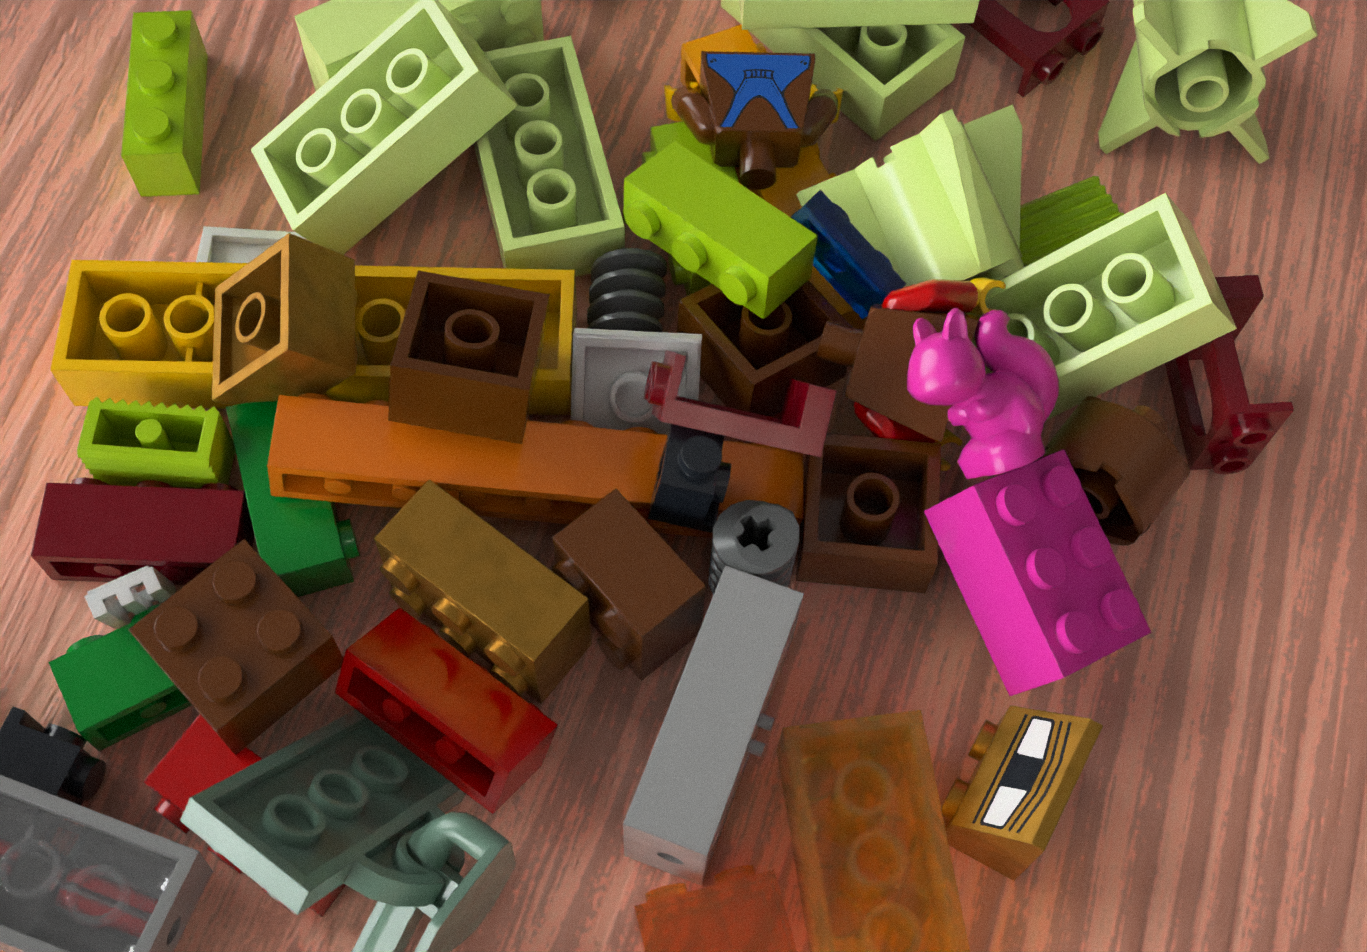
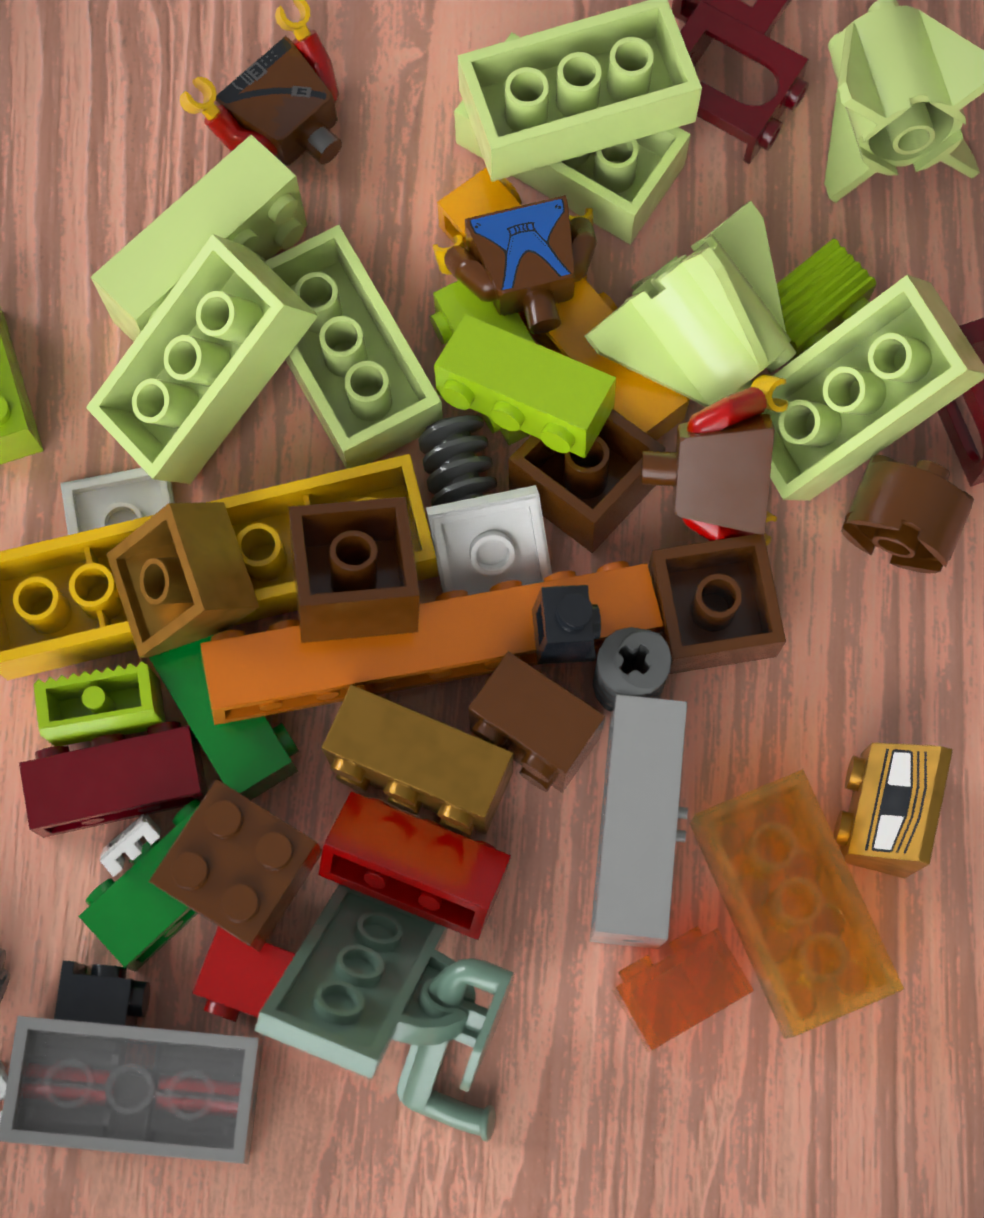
camera: 10 degrees left, 10 degrees up
(799, 429) = (638, 558): dark red panel -> none
(845, 257) = (642, 387): clear blue plate -> none
(999, 408) = (807, 499): dark pink animal -> none
(1037, 573) = (869, 625): dark pink brick -> none

